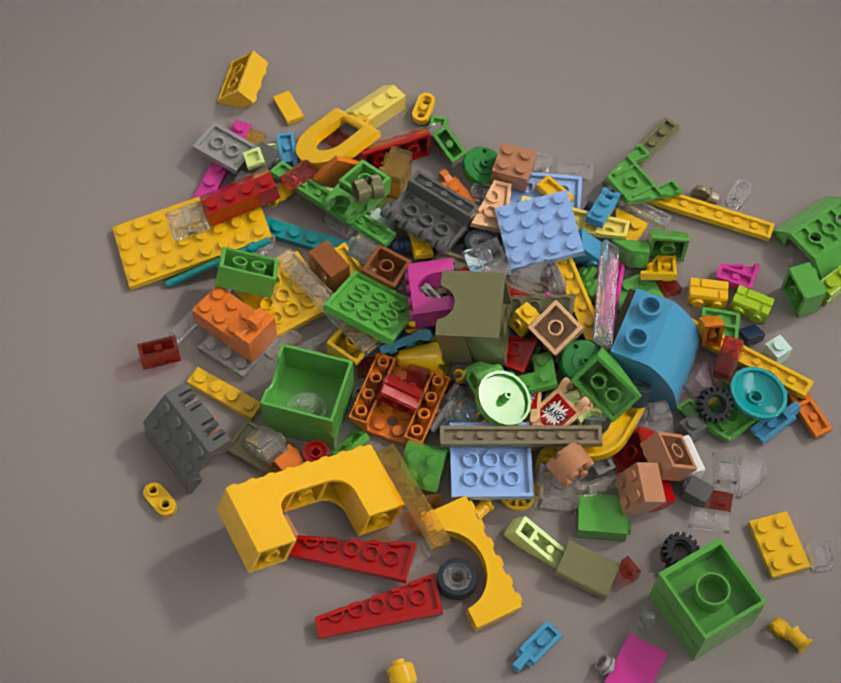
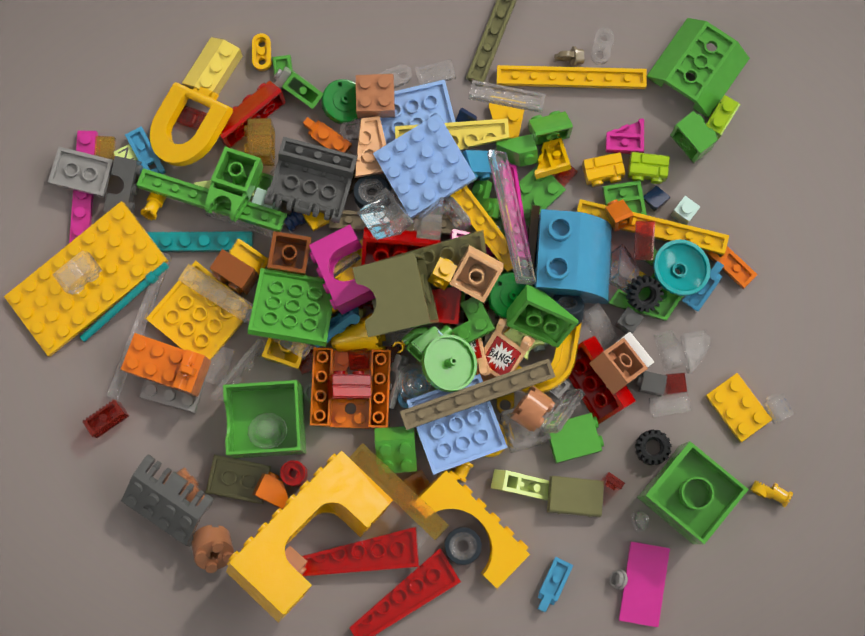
camera: 15 degrees left, 20 degrees up
(159, 498) = (165, 562): yellow plate -> none
(207, 493) = (212, 547): none -> nougat brick
(224, 394) = (183, 435): yellow plate -> none
(239, 197) = (117, 229): red slope -> none
(243, 80) = (67, 82): yellow slope -> none
(246, 272) = (158, 311): bright green brick -> none
(254, 158) = (115, 178): yellowish green tile -> none
(266, 443) = (244, 481): clear brick -> none
(288, 108) = (125, 97): yellow tile -> none
(298, 175) = (167, 181): clear red tile -> none
(334, 170) = (203, 163): orange tile -> none
(355, 439) = (319, 449): bright green plate -> none
(361, 248) = (258, 241): clear brick -> none
(367, 189) = (244, 185): olive wheel -> none
(429, 291) = (343, 271): light grey axle -> none
(550, 186) = (422, 107): yellow tile -> none
(603, 208) = (477, 114): dark azure plate -> none
(635, 184) = (497, 72): bright green wing -> none
(640, 488) = (602, 408): nougat brick -> none

